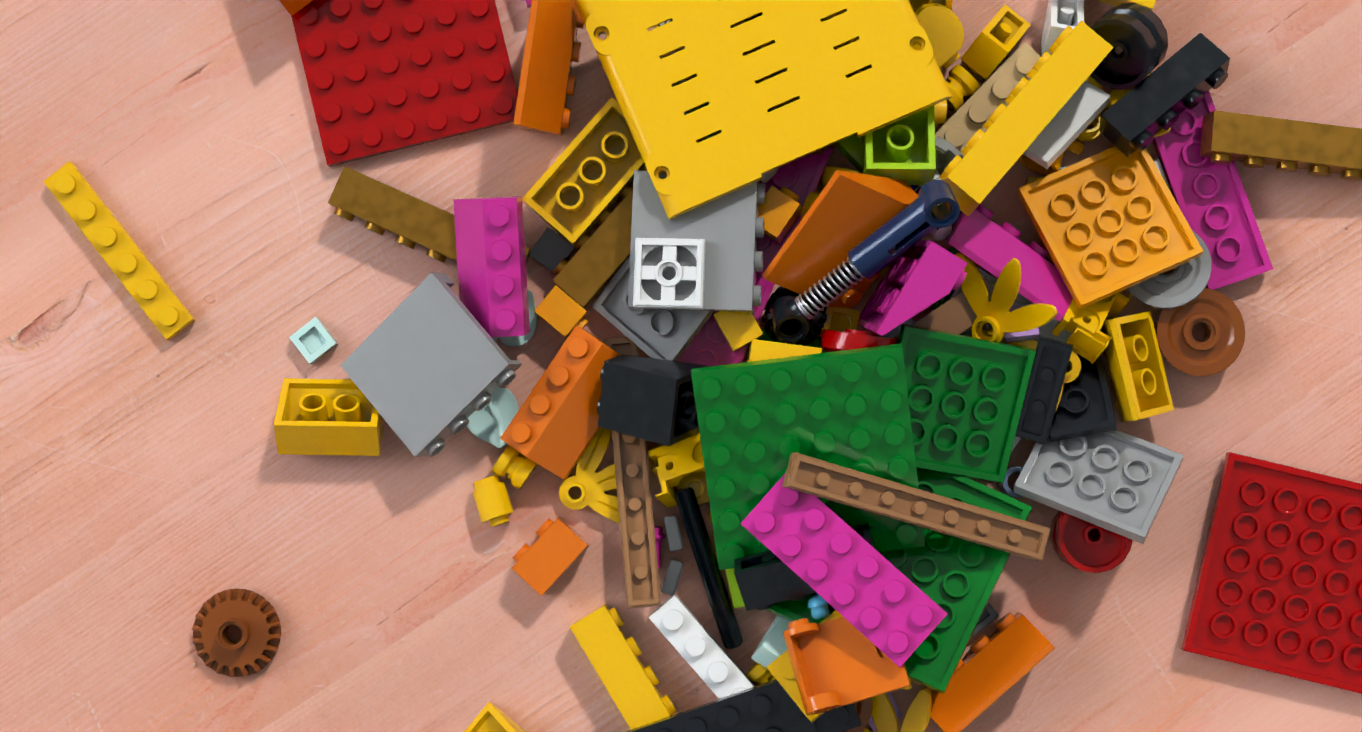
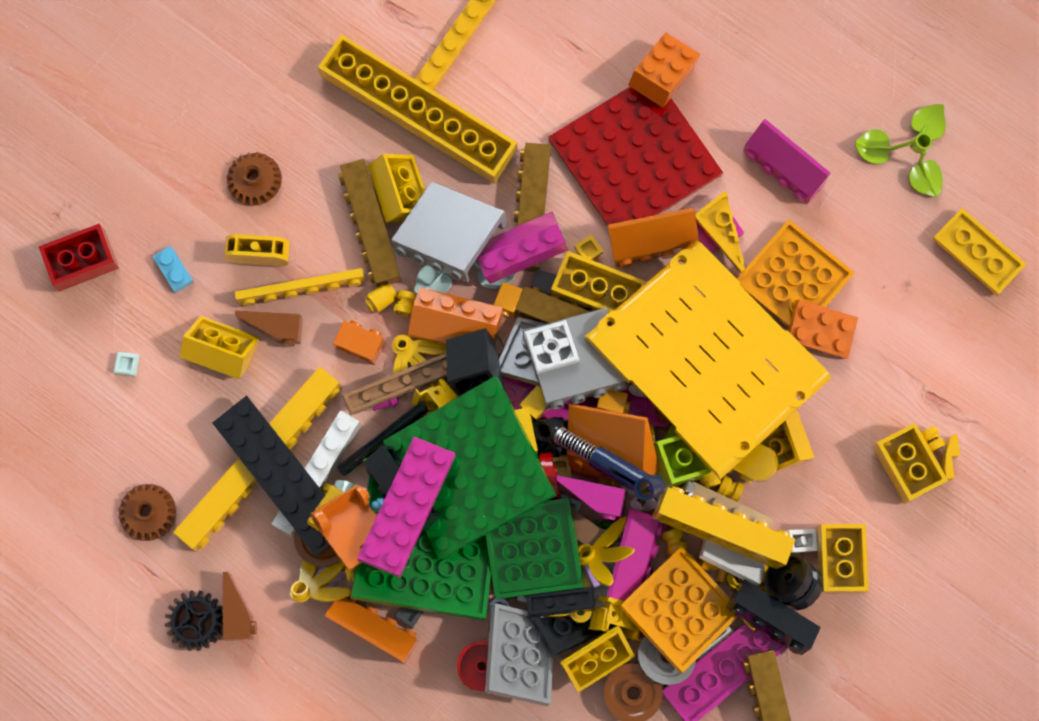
camera: 70 degrees right, 10 degrees down
(213, 348) = (418, 109): none -> yellow brick
(313, 340) = (441, 164): light aqua tile -> none
(356, 664) = (257, 250): none -> yellow brick
(369, 479) = (370, 223): none -> pearl gold brick
(433, 631) = (293, 288): none -> yellow plate
(485, 667) = (281, 327): none -> dark orange slope
(524, 165) = (589, 248): none -> yellow plate
(672, 577) = (370, 418): dark grey tile -> none
(673, 532) = (397, 410): dark grey tile -> none
(915, 507) = (460, 542): medium nougat tile -> none
(995, 42) = (769, 503): yellow slope -> none
(1005, 196) = (674, 539): none -> yellow wheel

